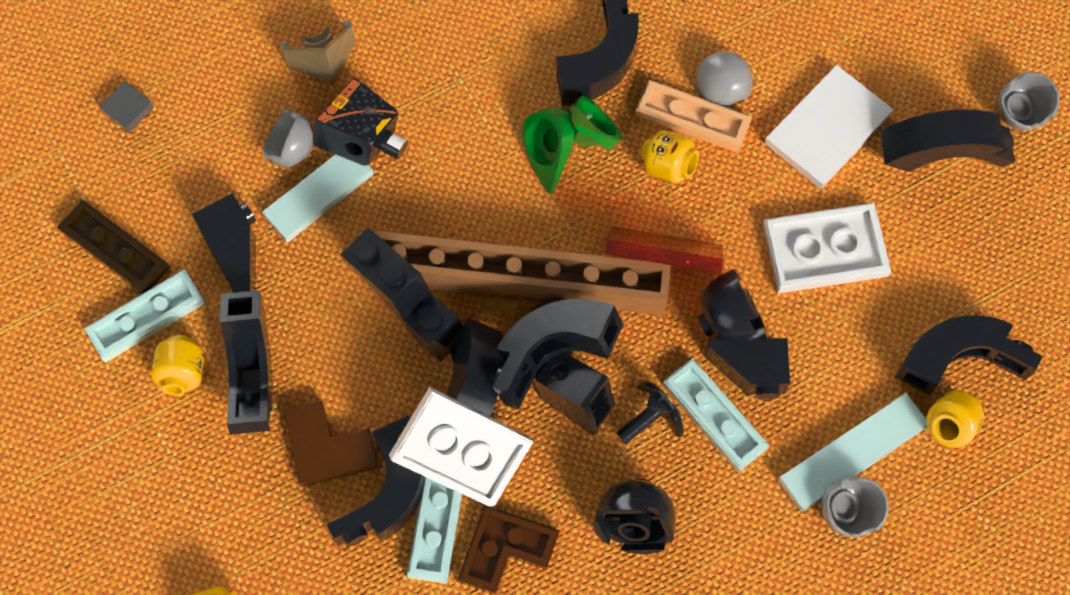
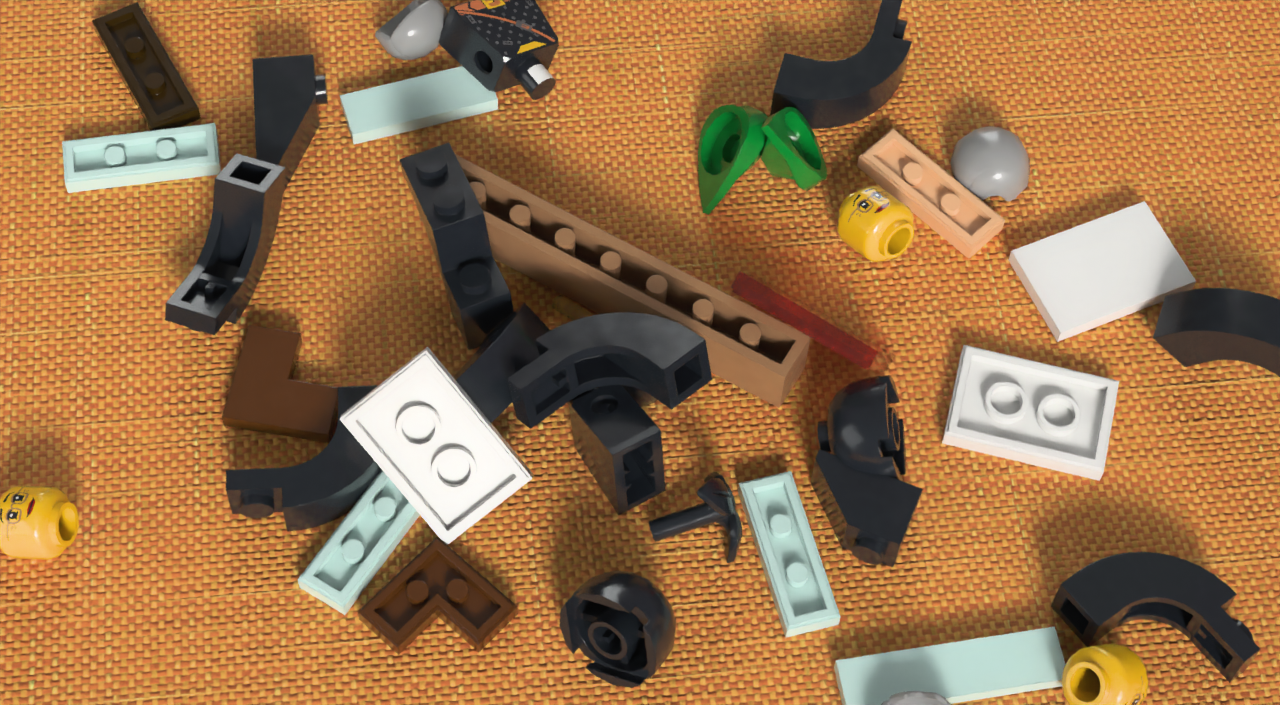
camera: 20 degrees right, 10 degrees down
(177, 365) = (148, 223): yellow head -> none

